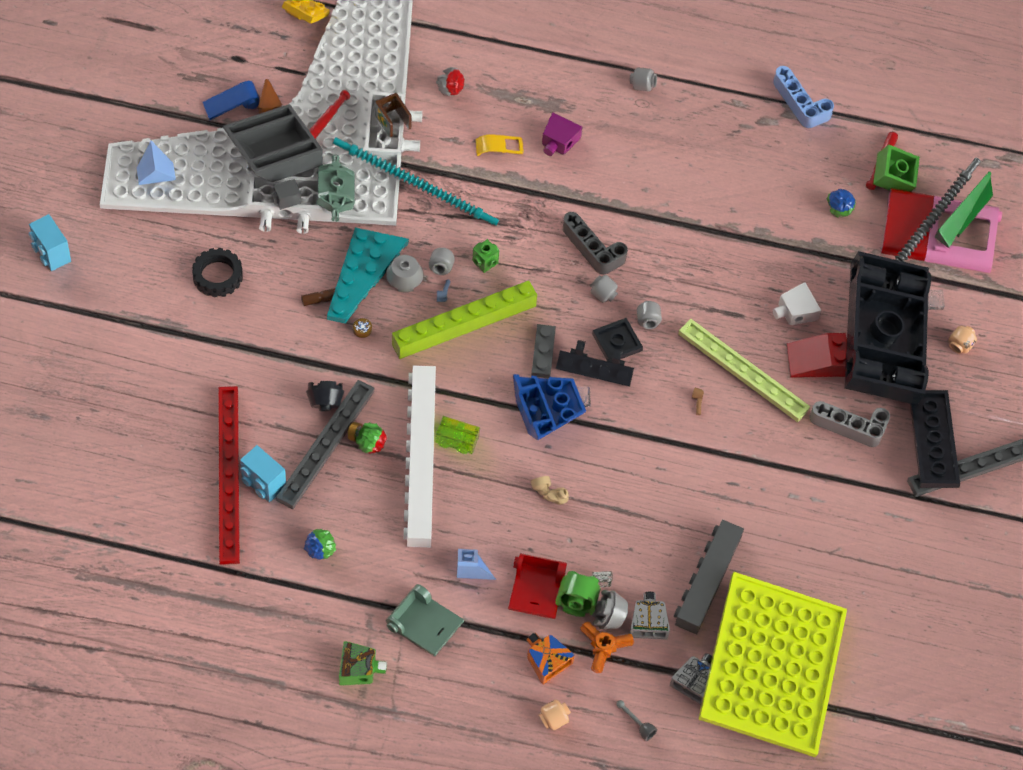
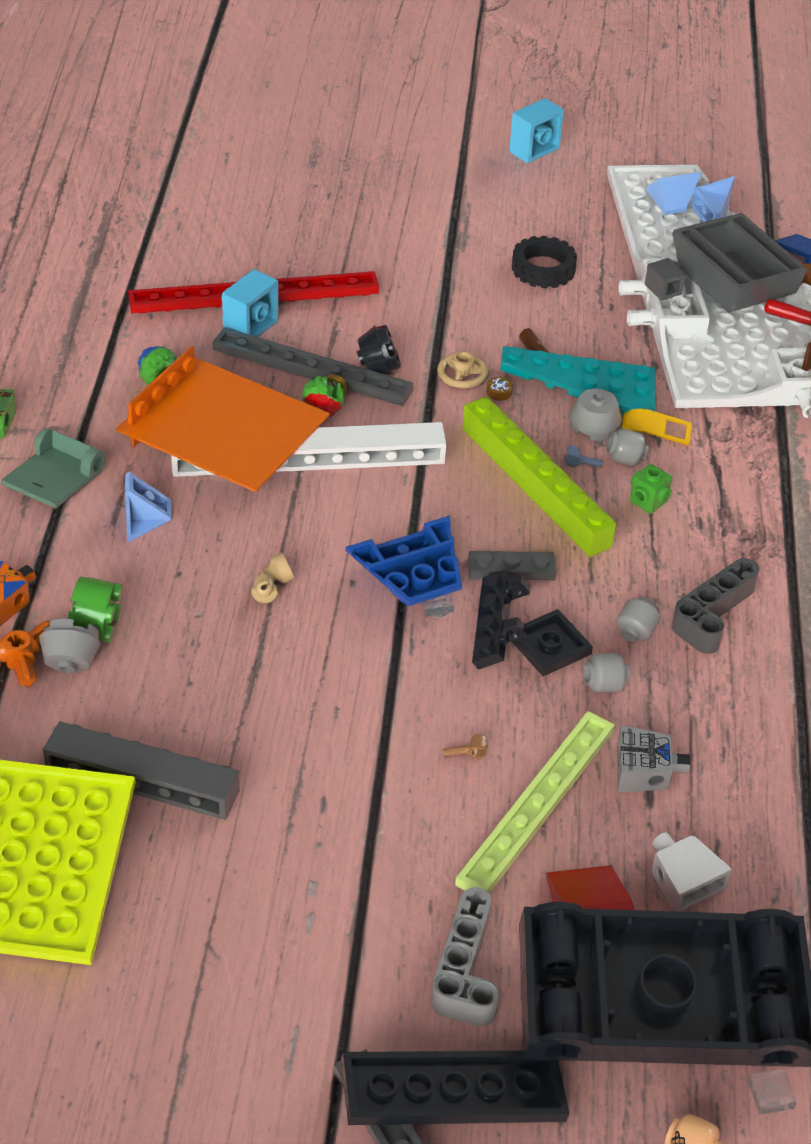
camera: 85 degrees right, 15 degrees down
(183, 143) = (713, 199): none -> light blue slope
(334, 197) = (681, 328): sand green plate -> none
(338, 339) = (464, 365): none -> tan piece
(398, 503) = (220, 421): none -> orange door
(414, 242) = (654, 423): none -> yellow piece
(457, 435) = (345, 480): clear neon green brick -> none
(477, 212) = (744, 411): teal hose -> none
(536, 585) = (135, 573): red door -> none
(605, 578) = (127, 642): clear tile -> none
(650, 618) = (64, 698): light grey torso -> none
(717, 309) = (647, 760): none -> light grey torso

